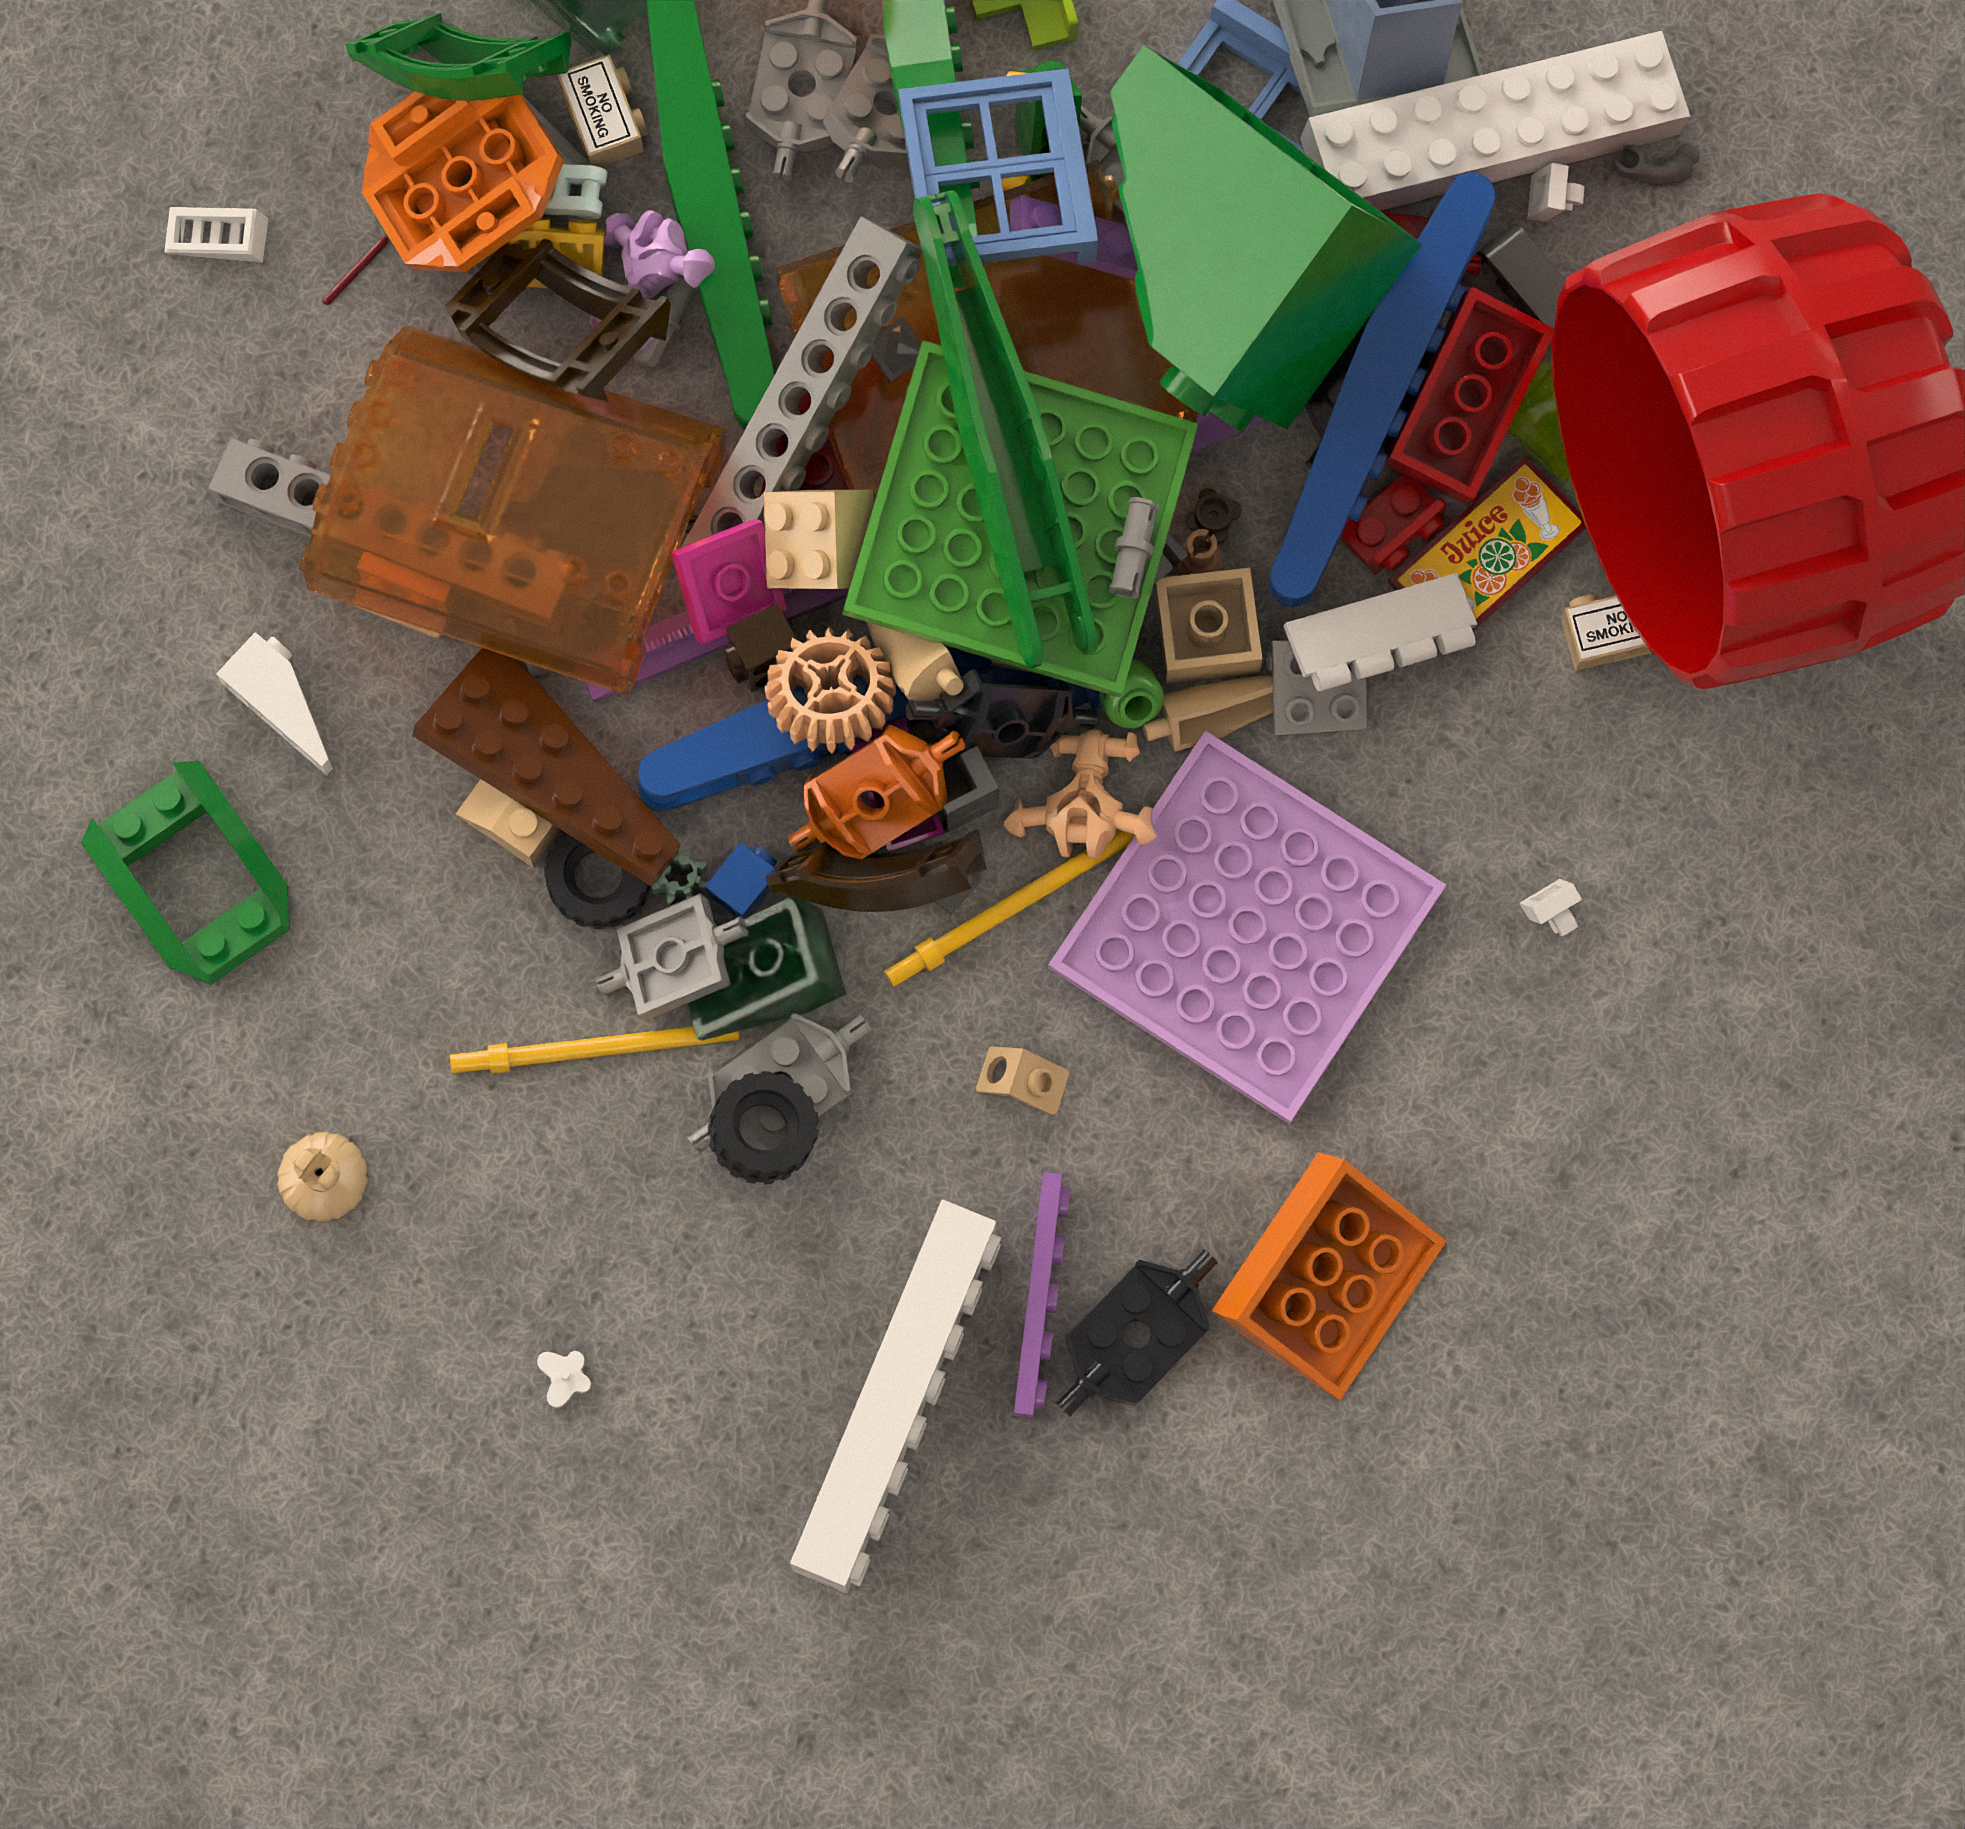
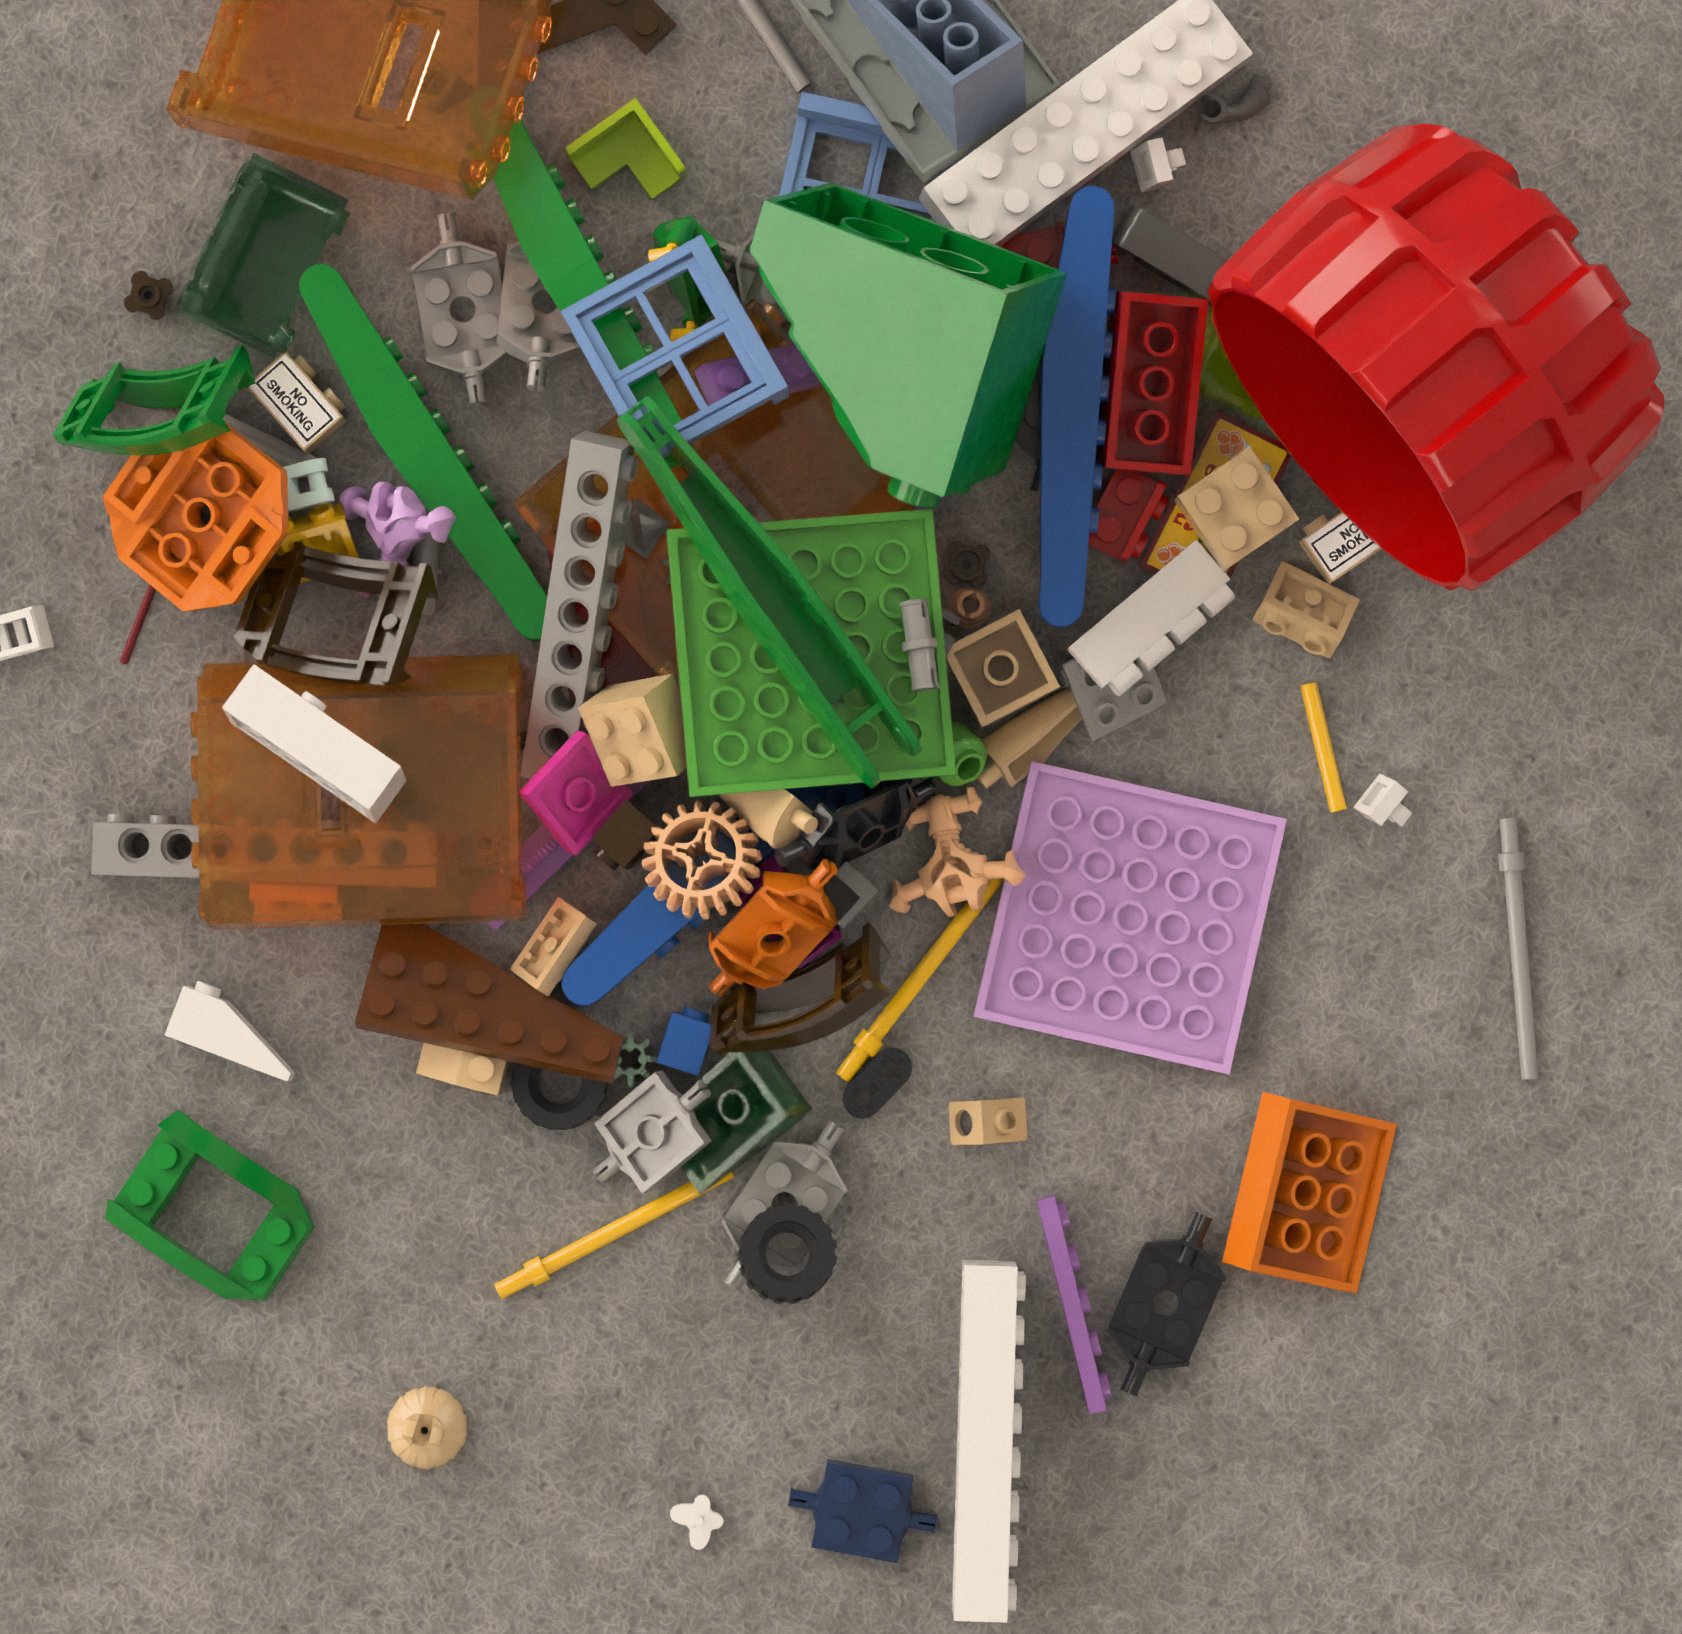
camera: 20 degrees left, 10 degrees up
(485, 418) = (314, 743): none -> white brick
(645, 730) = (553, 946): none -> tan bracket
(738, 1430) = (862, 1510): none -> dark blue plate
(928, 1008) = (885, 1090): none -> black beam
(1508, 553) = (1236, 509): none -> tan brick
(1510, 830) = (1323, 747): none -> yellow bar
(1542, 685) = (1306, 610): none -> tan bracket
(1662, 1018) = (1512, 862): none -> light grey bar

